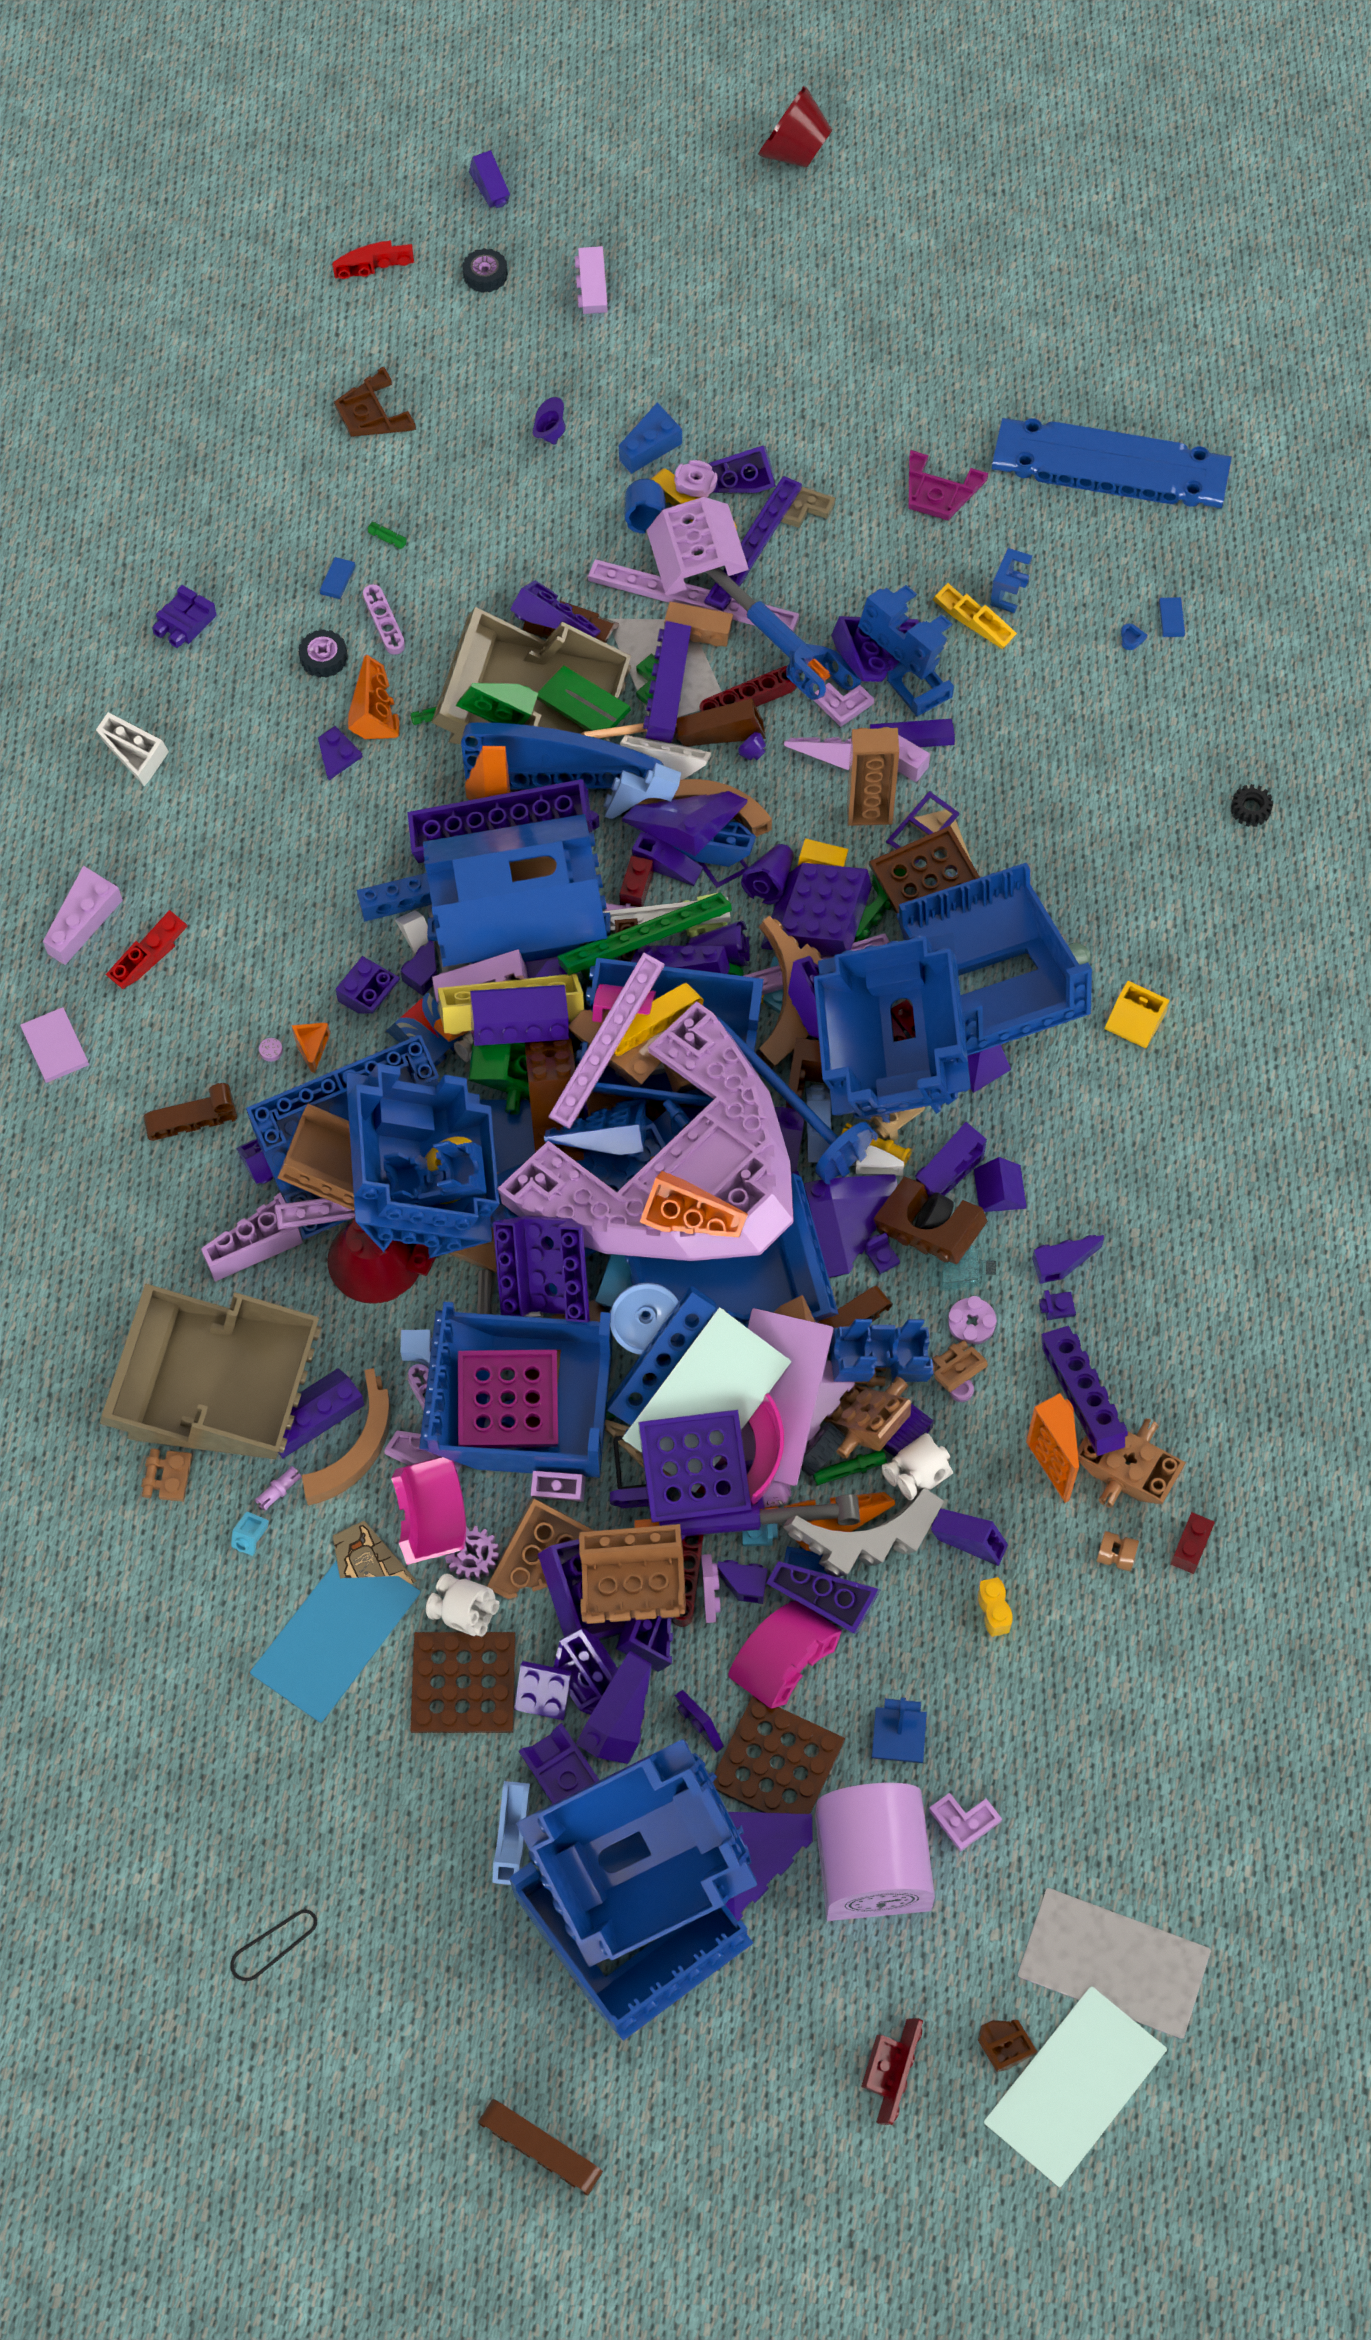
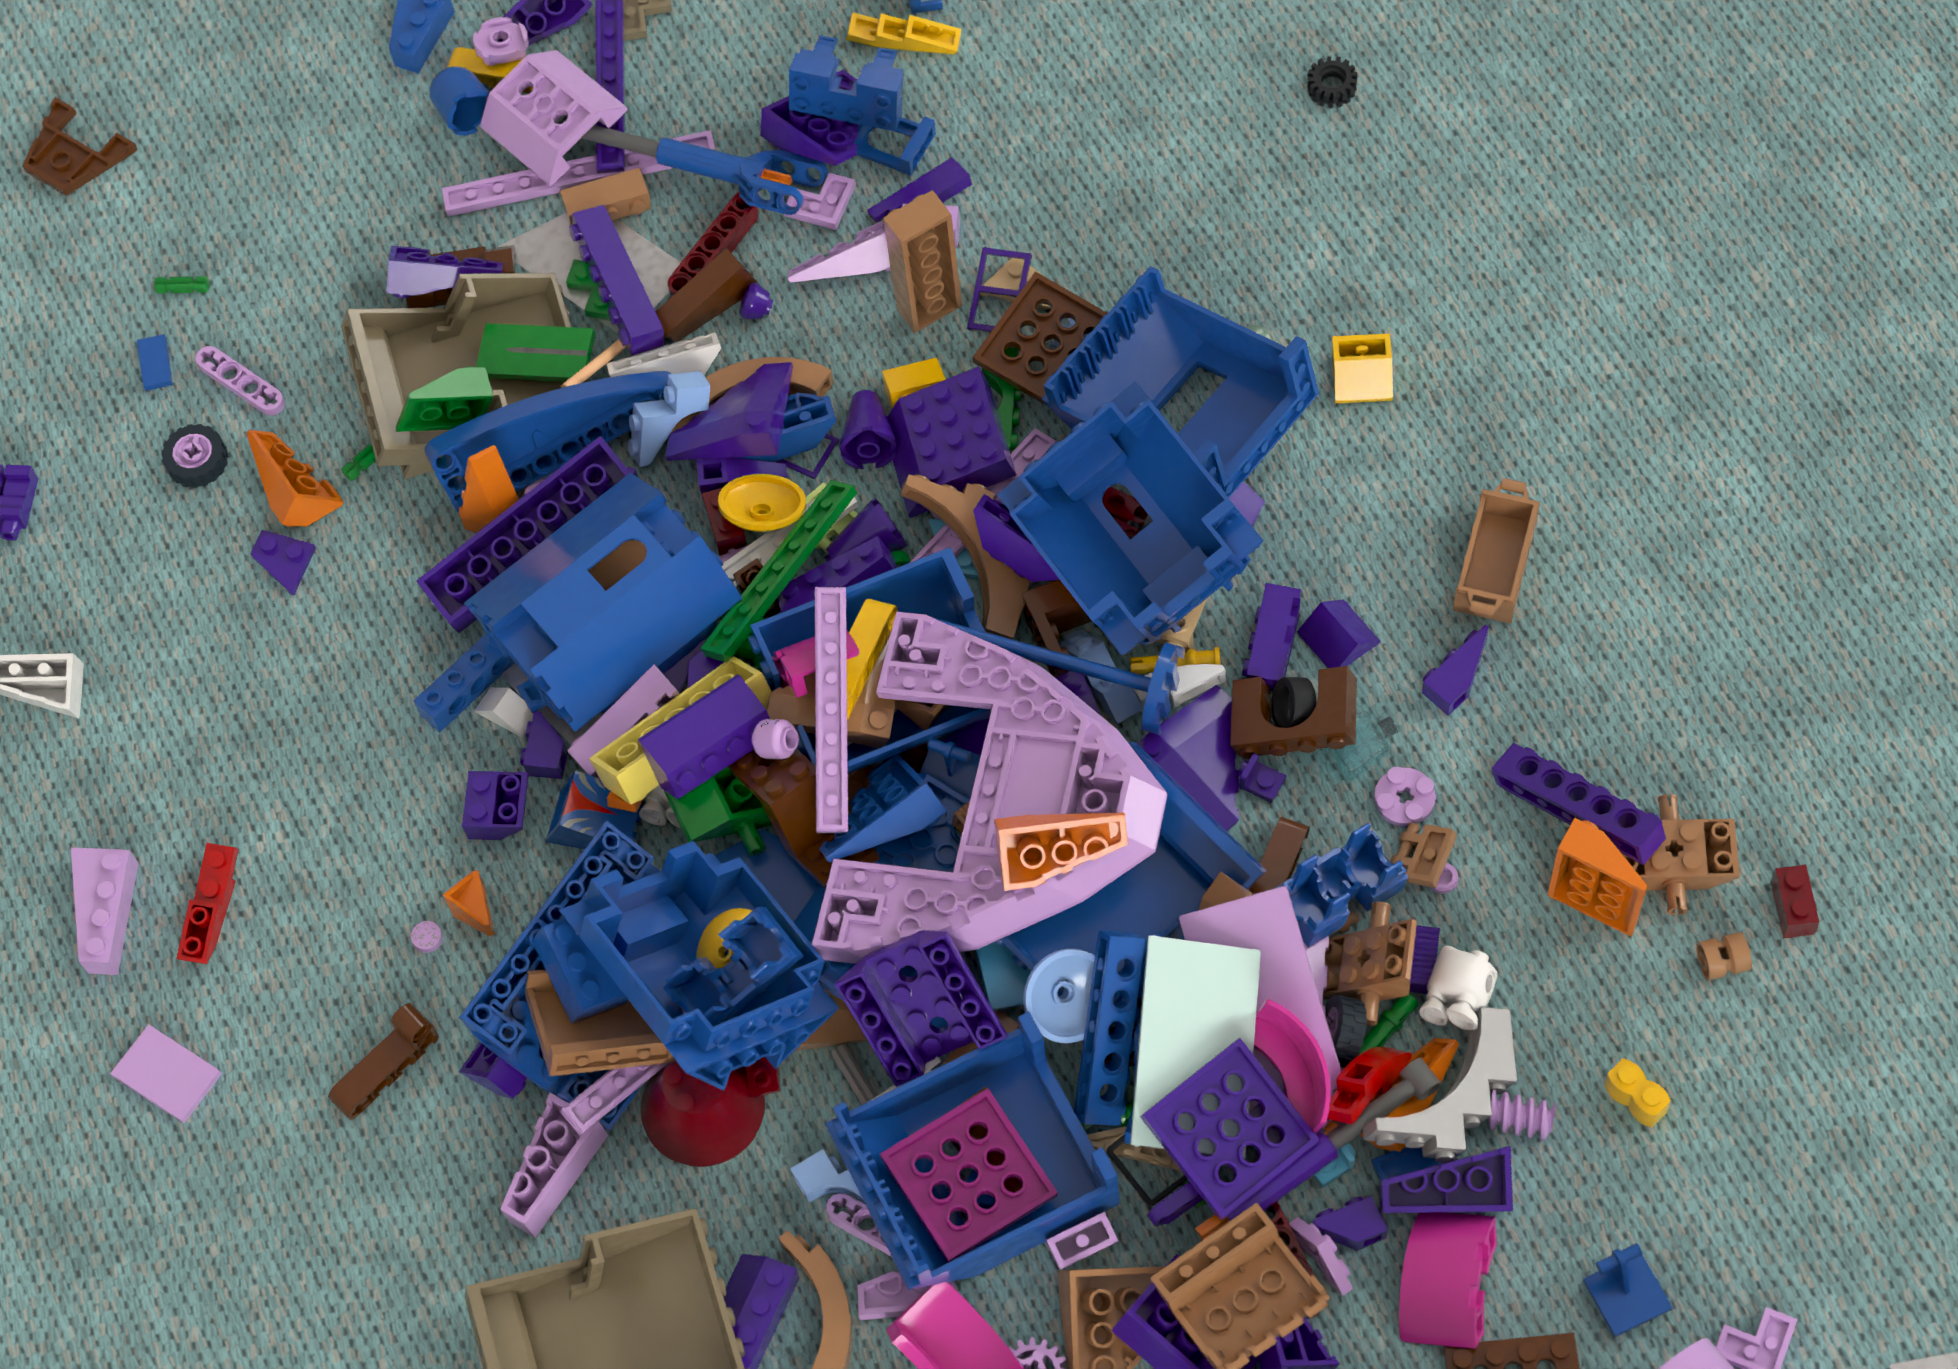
camera: 25 degrees left, 0 degrees up
(333, 1120) = (576, 973): none -> blue wedge
(549, 420) = (289, 60): dark purple piece -> none
(560, 1040) = (775, 739): none -> lavender head
(664, 882) = (761, 502): none -> yellow dish
(809, 1487) = (1364, 1078): none -> red slope
(905, 1576) = (1521, 1115): none -> lavender piece
(970, 1535) = (1559, 1030): dark purple slope -> none
(1057, 1305) = (1483, 728): dark purple bracket -> none
(1145, 1192) = (1497, 553): none -> medium nougat container

